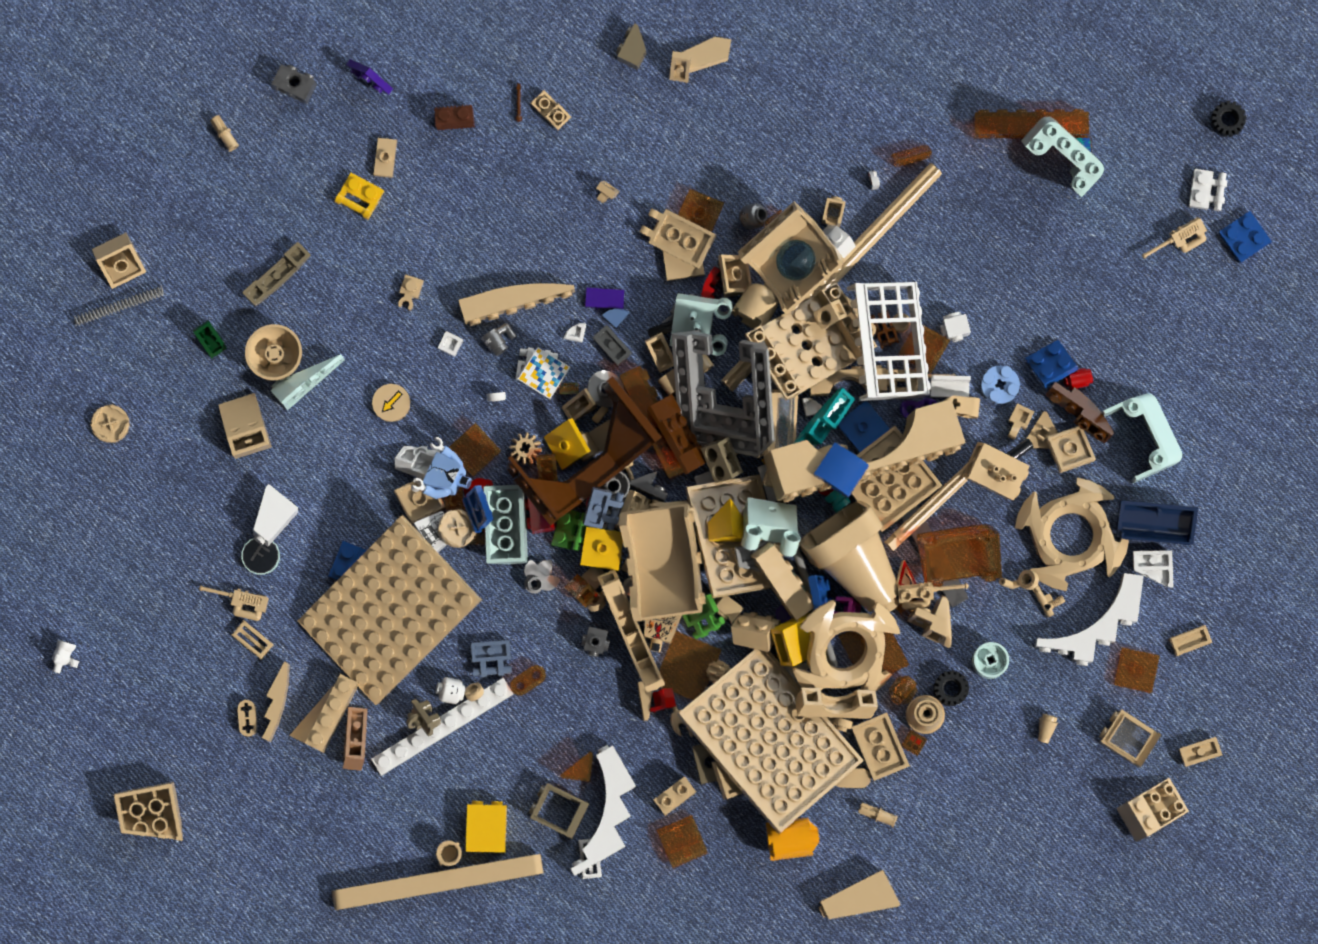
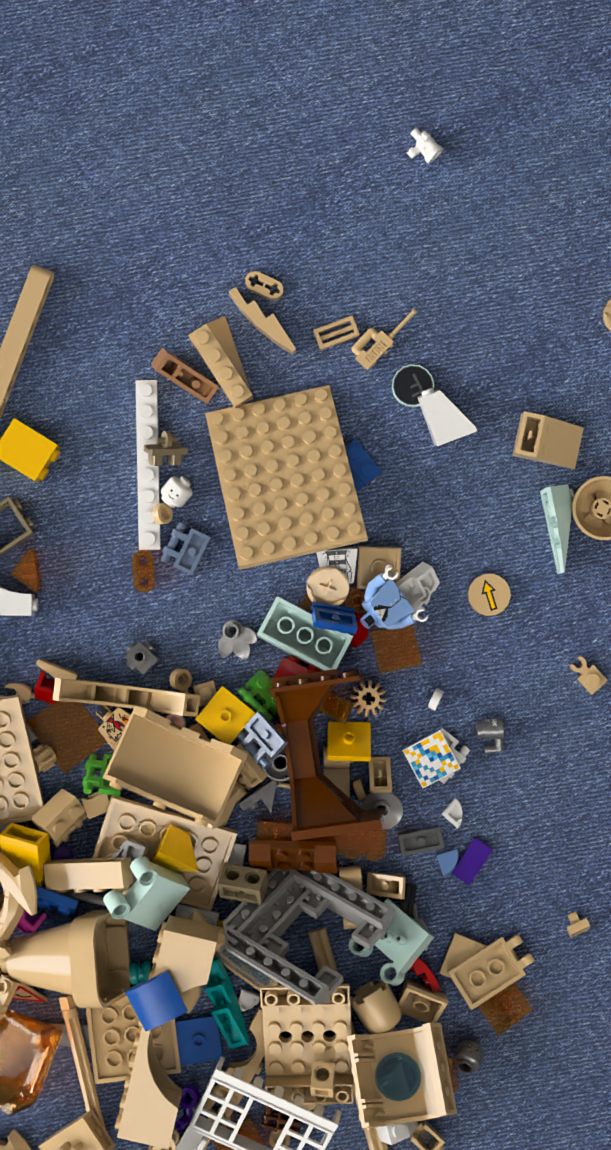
camera: 120 degrees right, 5 degrees up
(150, 811) = (228, 143): tan wedge -> none
(449, 853) = (21, 401): tan piece -> none
(450, 344) = (513, 684): white tile -> none
(509, 300) = (523, 768): tan slope -> none
(569, 388) = (402, 775): clear orange tile -> none
(581, 590) = (198, 672): clear orange brick -> none

